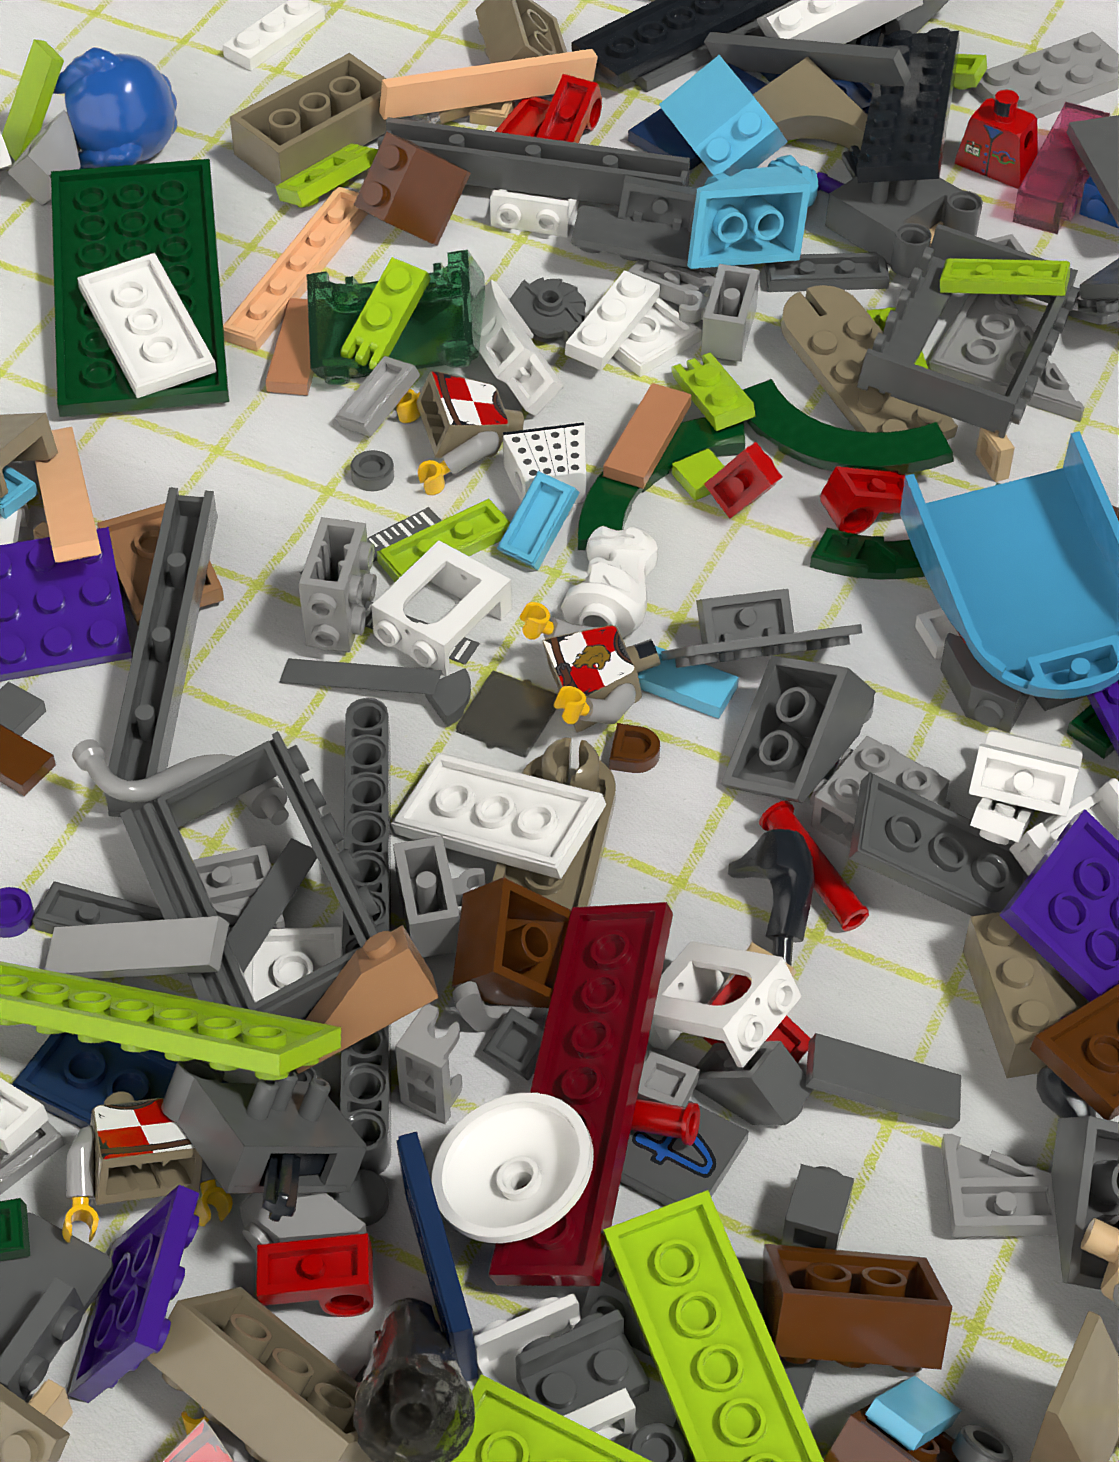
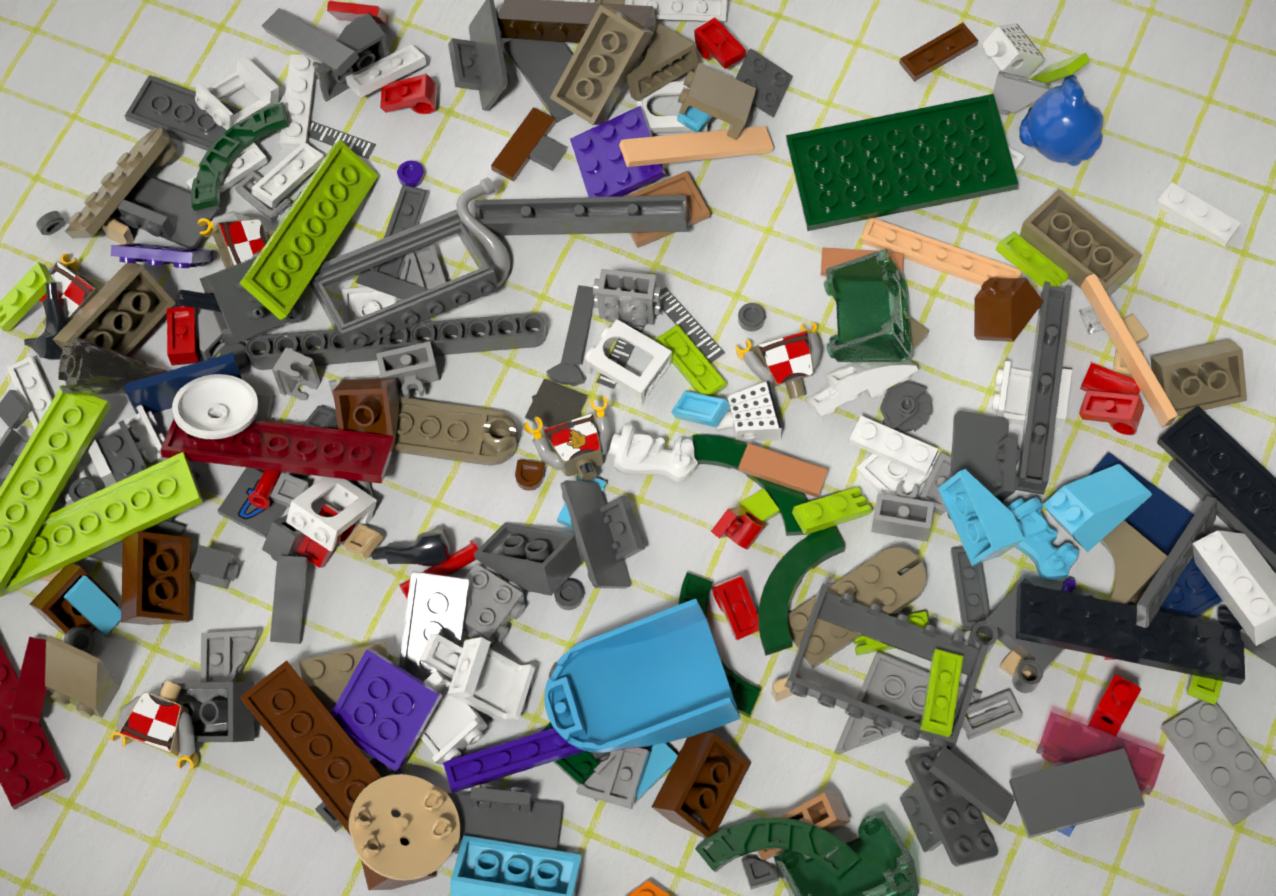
camera: 90 degrees right, 15 degrees up
(139, 948) = (366, 229): light grey tile -> none
(146, 325) = (855, 170): white tile -> none
(375, 989) = (319, 334): medium nougat slope -> none
(377, 396) = (809, 311): light grey tile -> none
(386, 313) = (870, 303): lime hinge -> none
(500, 814) = (466, 399): white tile -> none

